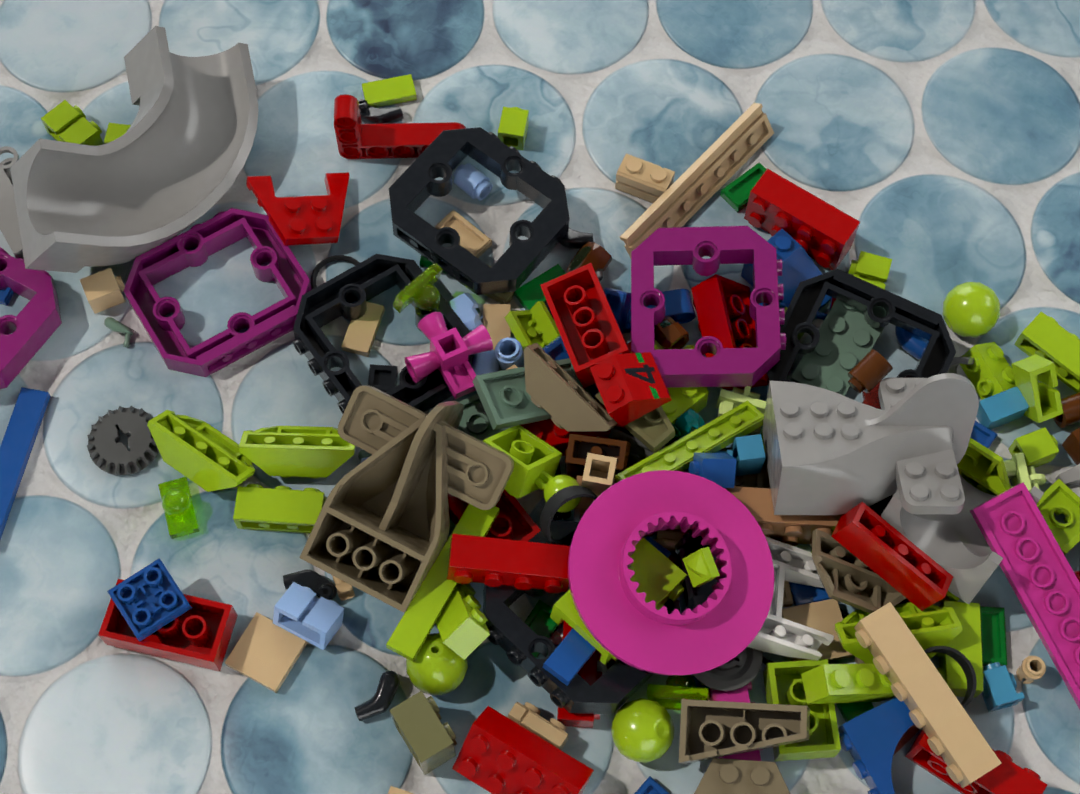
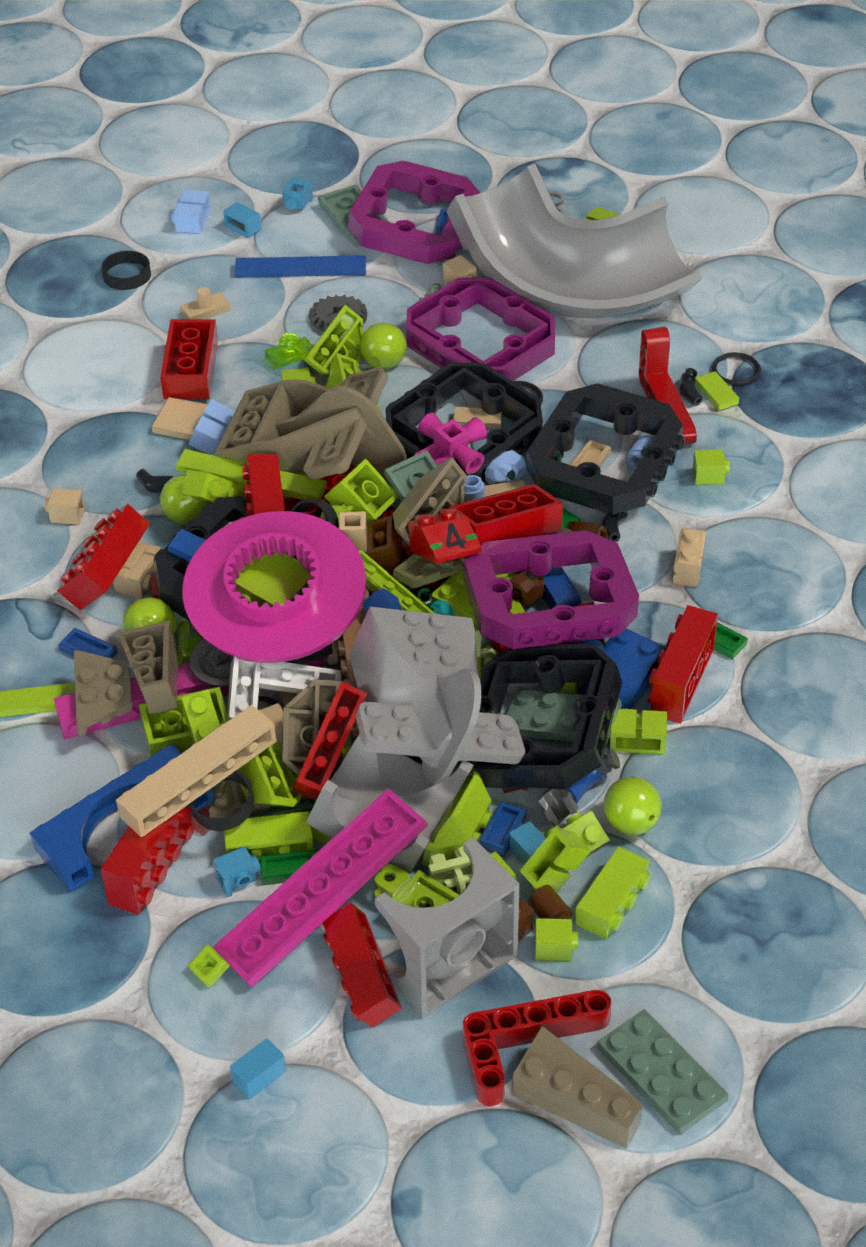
camera: 80 degrees right, 20 degrees down
(52, 596) = (206, 305): none -> tan tile
(149, 599) = (201, 334): blue tile -> none
(218, 398) = (383, 345): none -> lime piece
(303, 218) = (563, 360): red wing -> none
(350, 46) = (741, 355): none -> black tyre
(421, 291) = (508, 421): clear neon green tile -> none
(423, 733) = (125, 487): olive brick -> none
(701, 567) = (276, 591): lime tile -> none
(703, 177) = (732, 603): tan plate -> none
(869, 372) = (518, 706): reddish brown brick -> none
(1030, 674) = (256, 887): tan pin -> none

